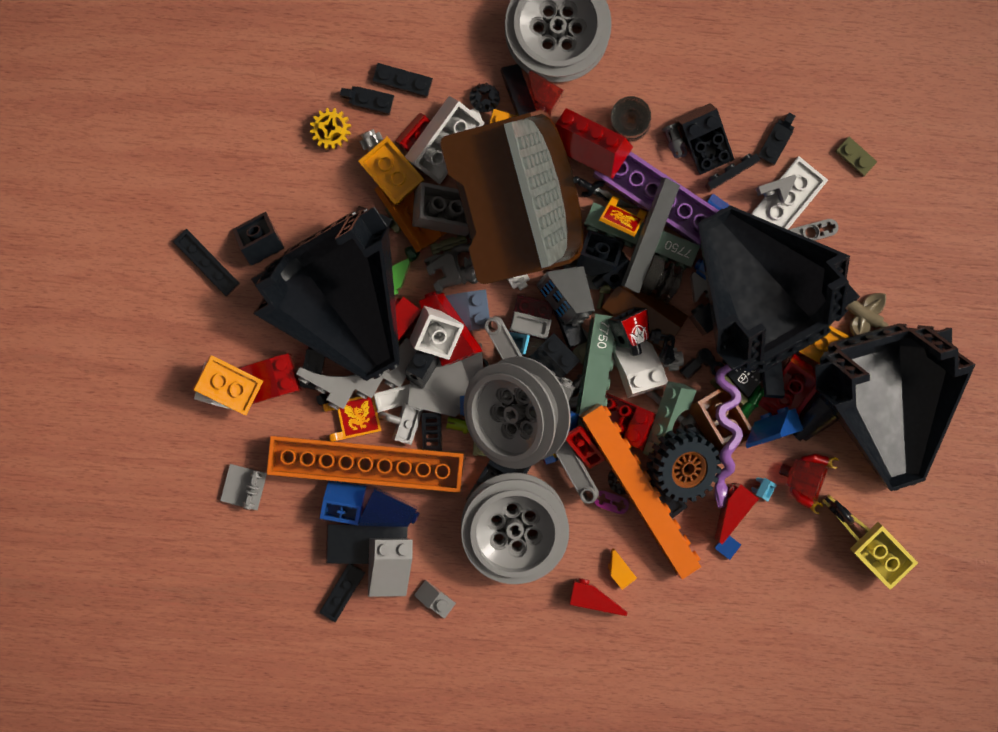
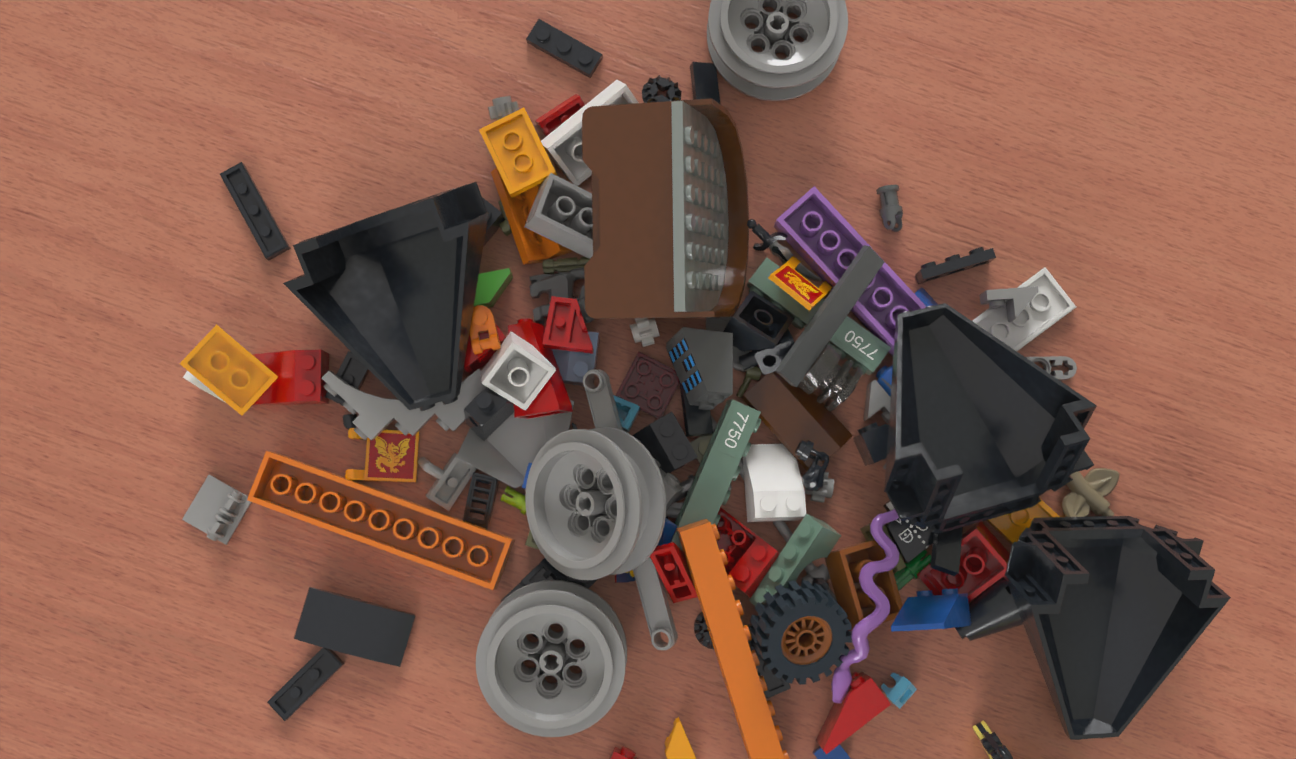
camera: 15 degrees right, 5 degrees down
(258, 239) = (327, 198): black slope -> none
(322, 126) = (454, 74): yellow gear -> none
(343, 502) = (338, 564): blue slope -> none
(369, 99) = (515, 61): black hinge -> none
(388, 510) = (392, 589): clear blue slope -> none
(389, 566) = (373, 665): light grey slope -> none
(392, 398) = (440, 443): white tile -> none
(402, 304) = (482, 322): none -> orange plate
(411, 254) = (516, 265): hinge -> none
(434, 599) = (424, 724): light grey slope -> none
(462, 291) = (566, 327): none -> red wing
(530, 325) = (644, 394): light grey tile -> none
(544, 93) = (740, 102): clear red slope -> none
(592, 143) = (785, 181): red slope -> none
(612, 497) = (687, 660): magenta beam -> none
(631, 329) = (774, 432): torso -> none
(633, 108) = (848, 153): clear smoke wheel -> none
(703, 356) = (859, 493): black bar -> none
(705, 138) = (930, 214): black slope -> none
(777, 140) = (1022, 240): black hinge -> none
(807, 478) = (960, 692): clear red torso -> none
(856, 156) = (1119, 286): olive plate -> none

